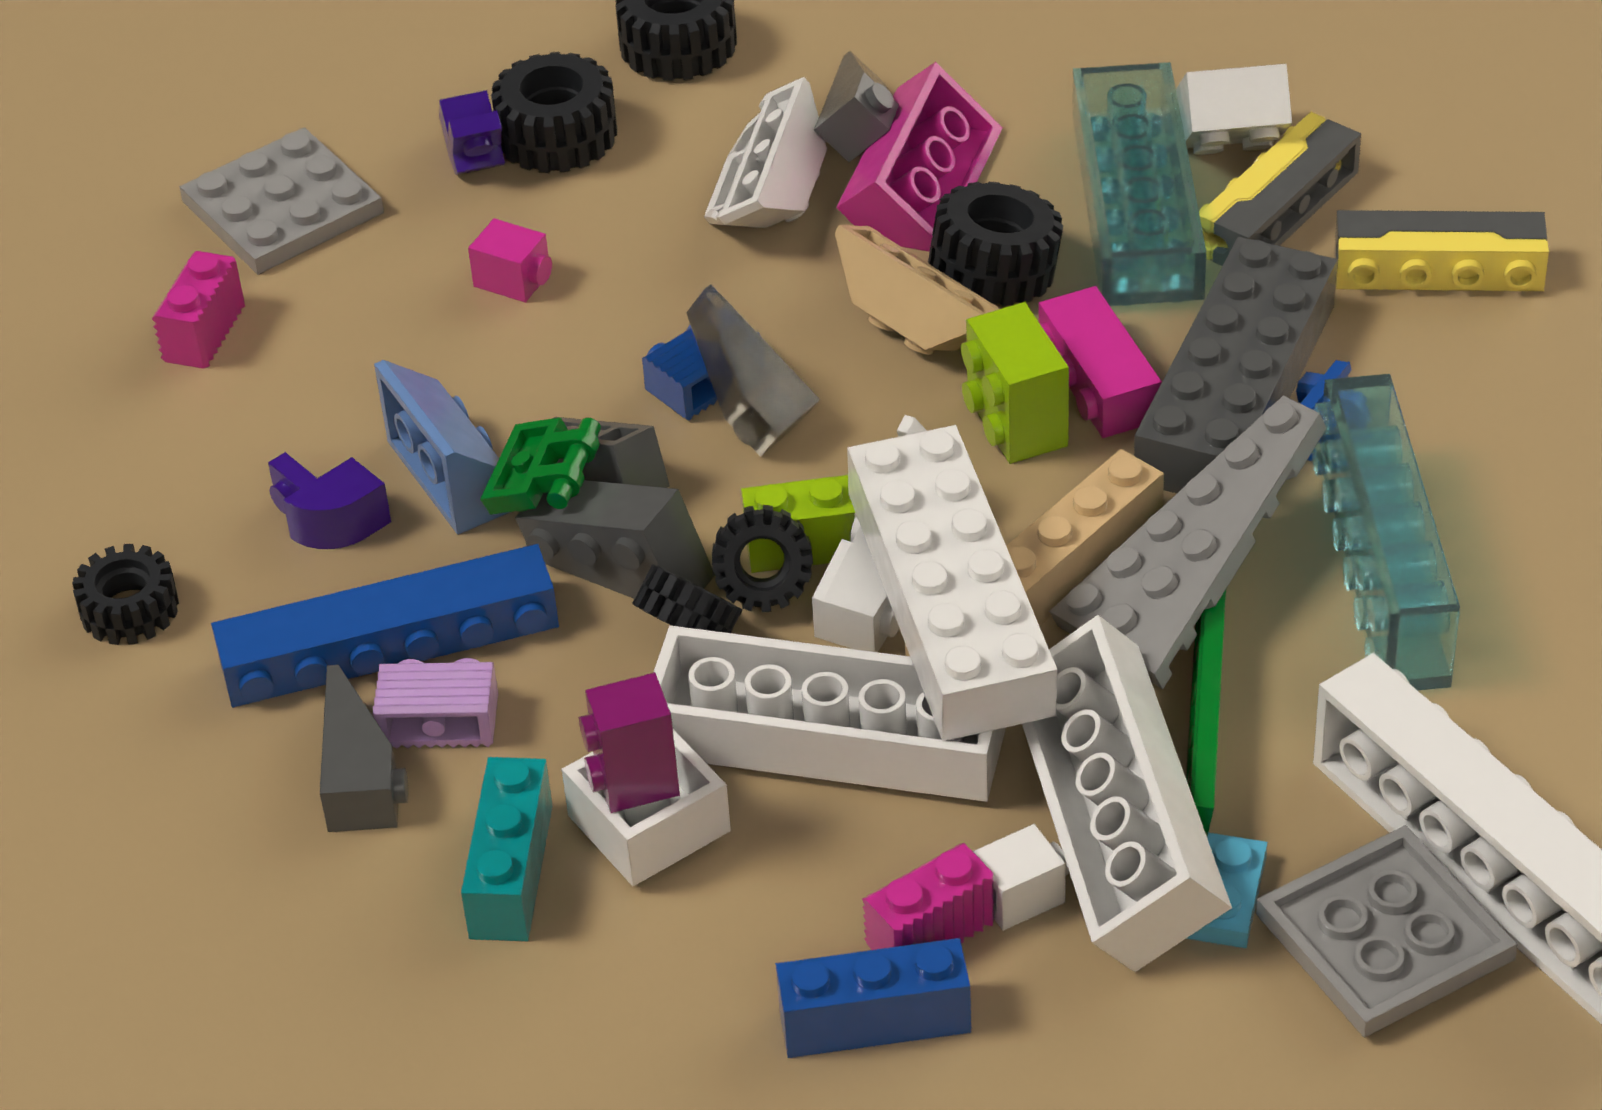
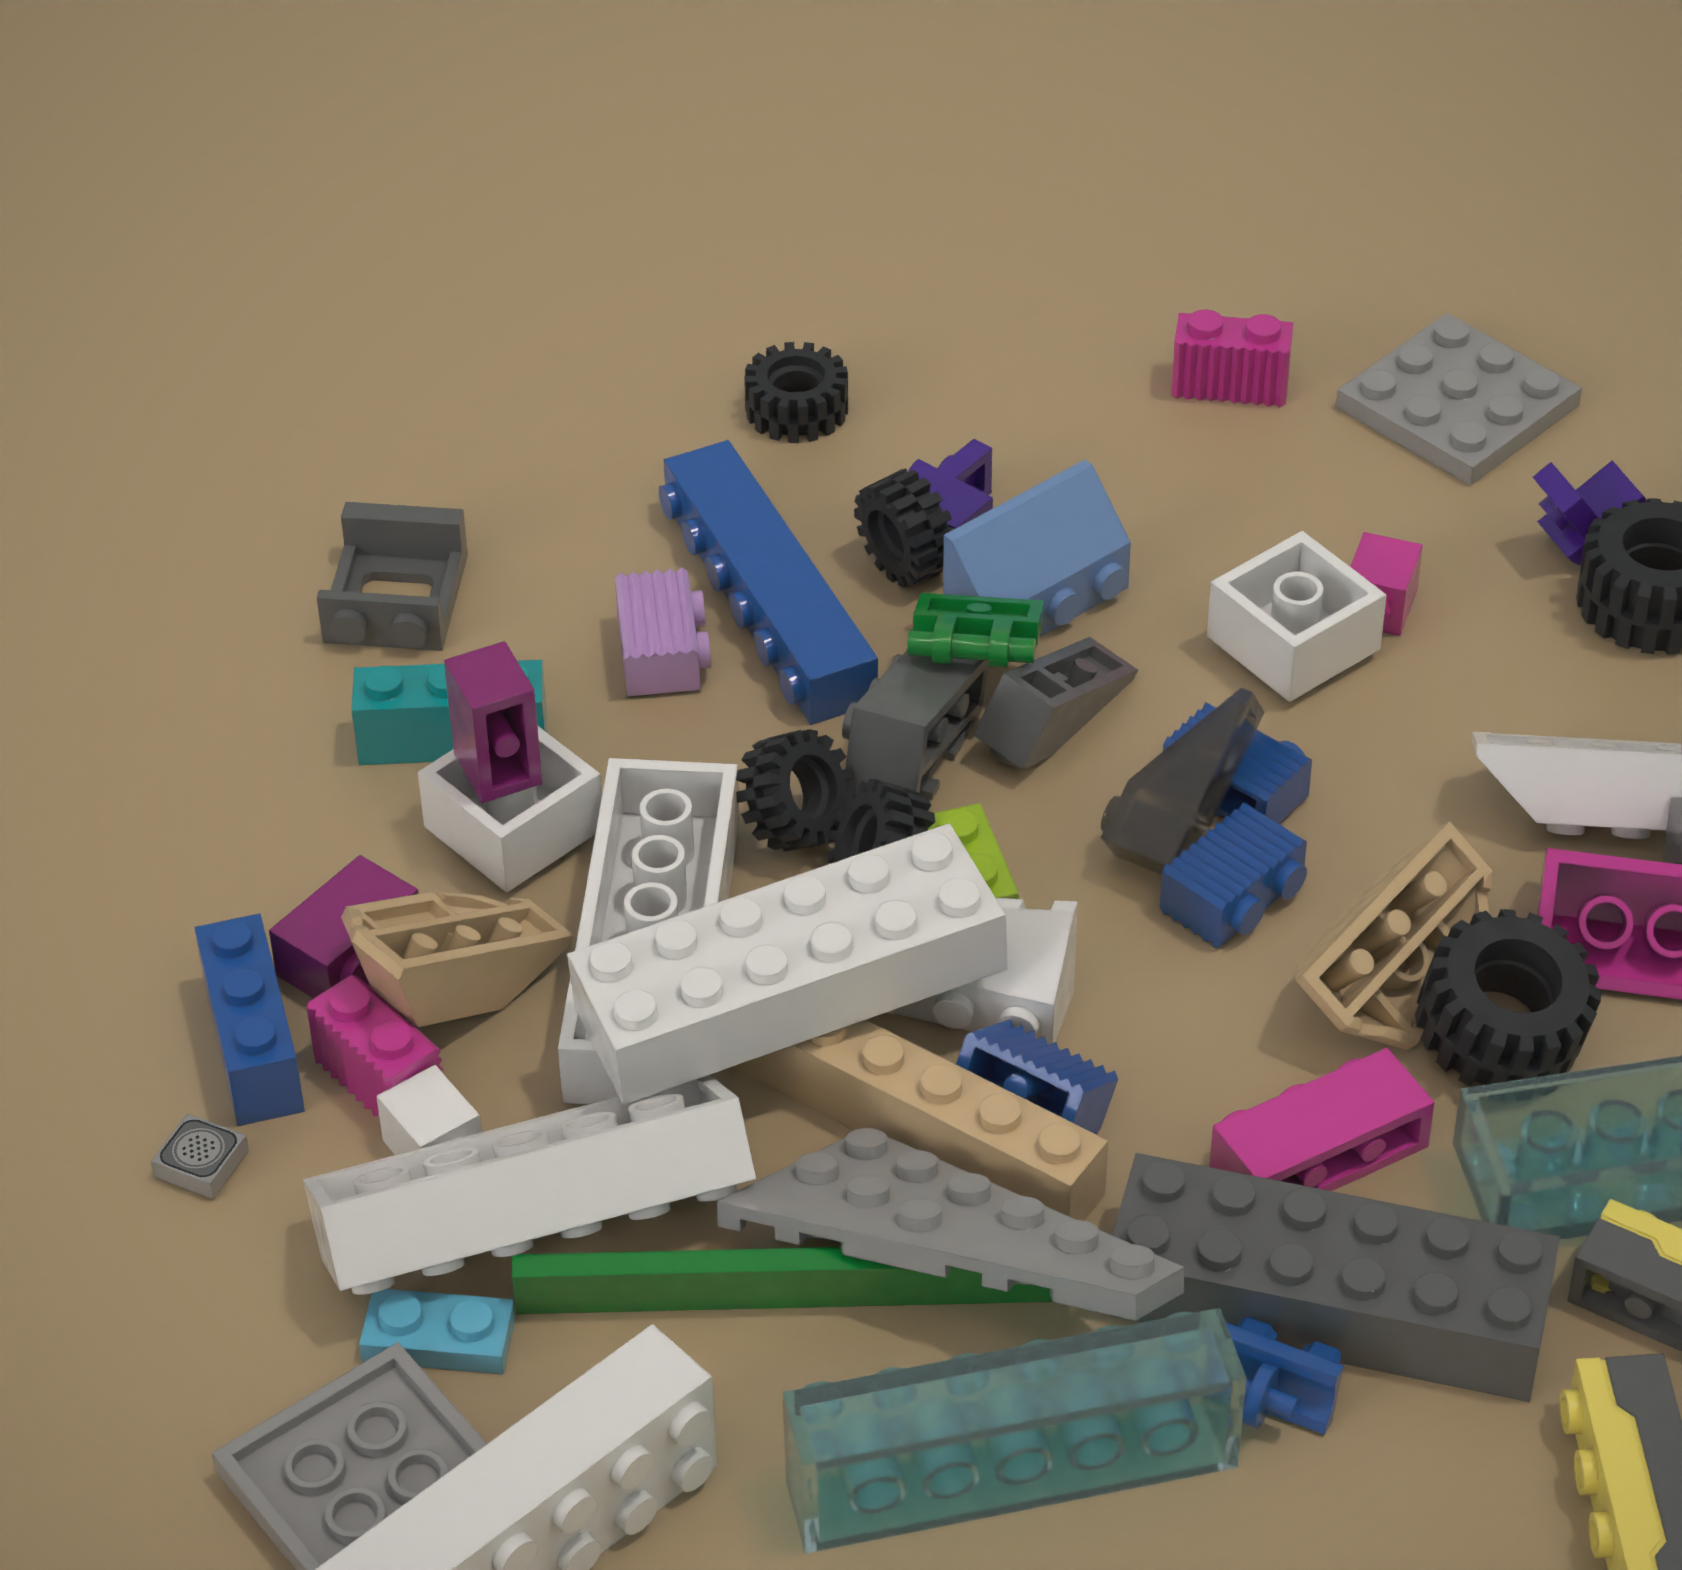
camera: 80 degrees right, 0 degrees up
(255, 882) = (395, 546): none -> dark grey window
(356, 500) = (903, 526): none -> black tyre
(357, 764) = (572, 587): dark grey slope -> none
(547, 302) = (1296, 615): none -> white brick
(766, 922) = (312, 942): none -> magenta brick
(834, 374) = (1233, 875): none -> blue brick
(846, 832) = (452, 952): none -> tan wedge
(1014, 1049) = (199, 1156): none -> light grey tile
(1016, 383) = (1226, 1037): lime brick -> none
(1033, 489) = (1040, 1073): none -> blue brick

